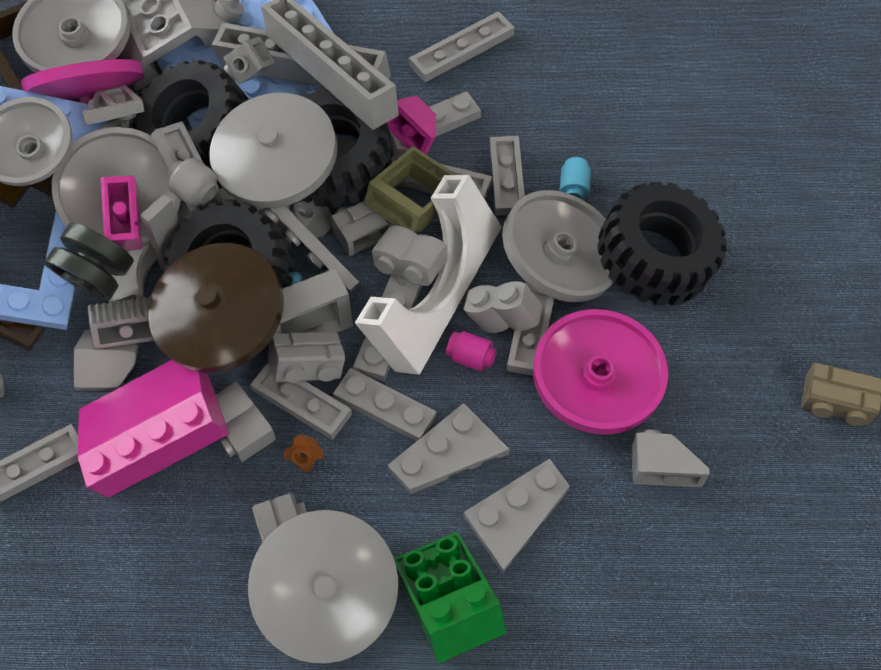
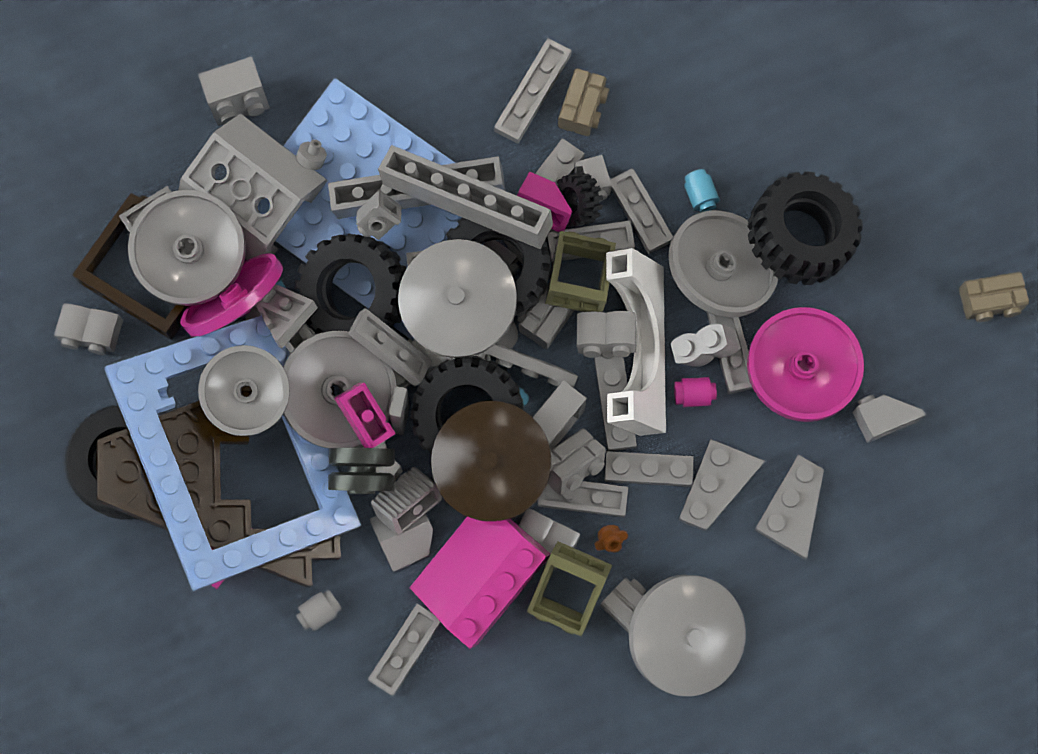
camera: 25 degrees left, 15 degrees up
(193, 182) = (409, 361): light grey head -> none
(251, 457) = (577, 564): none -> olive window
(450, 597) = (777, 596): green slope -> none
(452, 136) = (588, 197): none -> black tyre
(476, 130) = (596, 167): none -> light grey brick
(501, 70) = (582, 102): none -> dark tan brick

